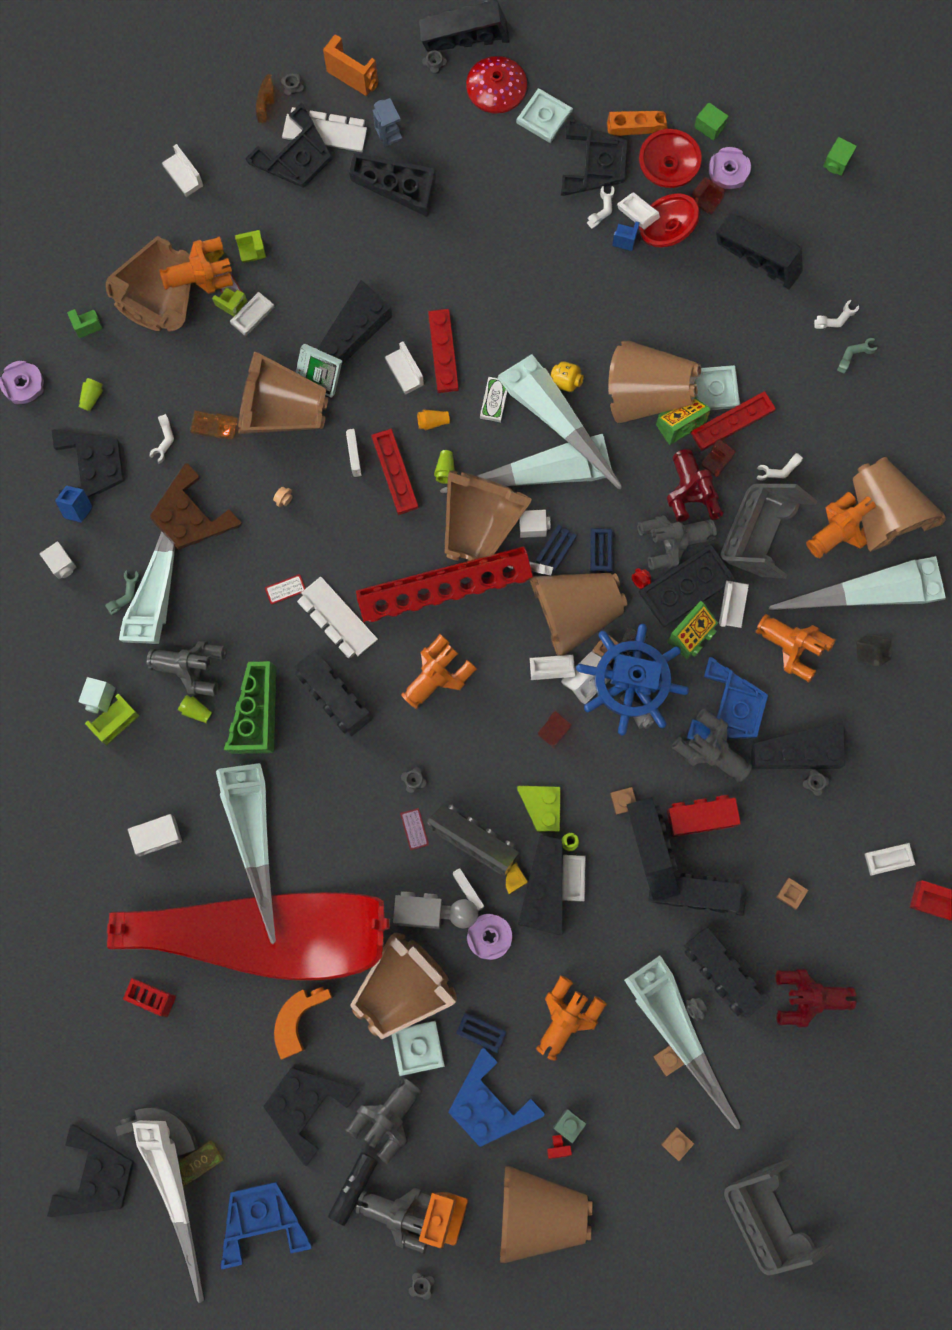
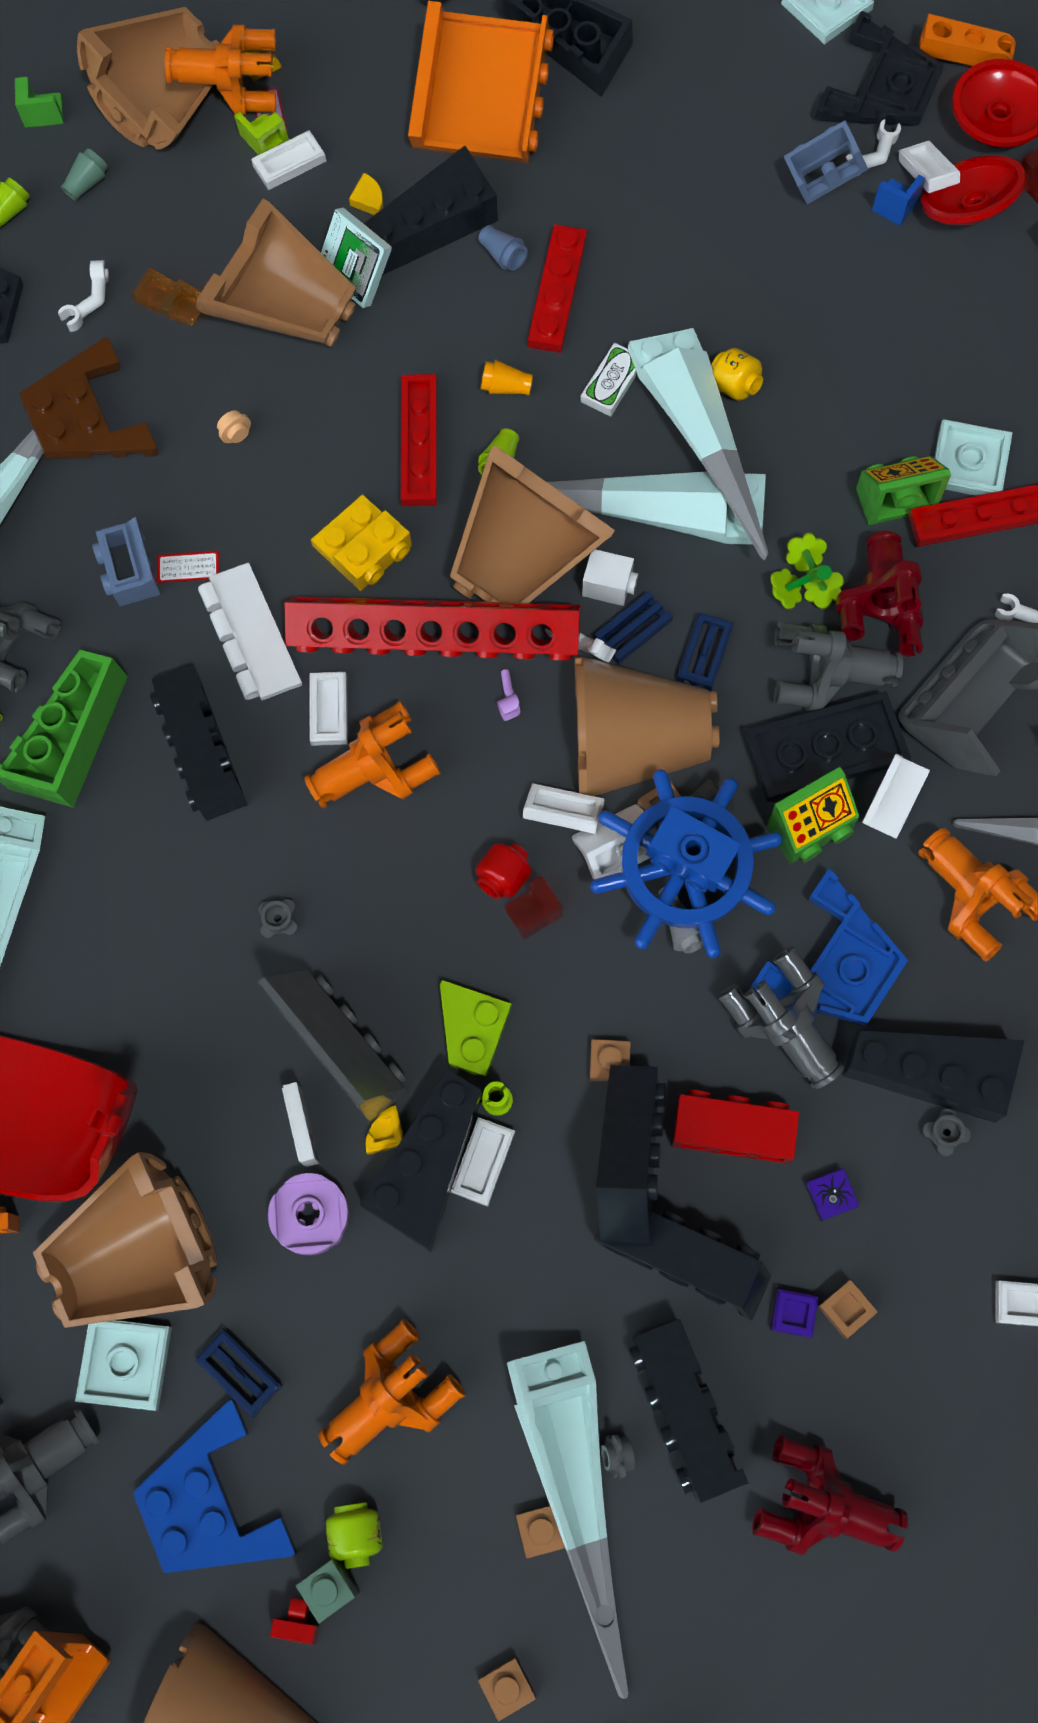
camera: 20 degrees right, 5 degrees down
(131, 360) = (84, 174): none -> sand green cone
(250, 246) = (321, 64): lime panel -> none
(266, 606) = (133, 588): none -> sand blue window
(309, 324) = (367, 195): none -> yellow tile
(353, 453) = (365, 394): white tile -> none
(355, 235) = (479, 84): none -> orange panel
(383, 544) = (363, 542): none -> yellow plate
(398, 649) = (328, 708): none -> white tile
(403, 334) = (504, 248): none -> sand blue cone
(405, 369) = (489, 298): white panel -> none
(414, 829) = (251, 999): clear purple sticker -> none
(428, 911) = (223, 1138): light grey brick -> none
(501, 617) = (508, 706): none -> lavender hand
(531, 714) = (503, 870): none -> red head
(565, 224) = (820, 151): none -> sand blue window
(572, 1094) = (353, 1534): none -> lime head
(641, 578) = (755, 711): red plate -> none
(649, 381) = (864, 413): medium nougat cone -> none
(655, 491) = (819, 582): none -> lime plant
(718, 458) = (944, 563): clear red panel -> none
(764, 905) = (794, 1313): none -> dark purple tile
(765, 835) = (832, 1194): none -> dark purple tile

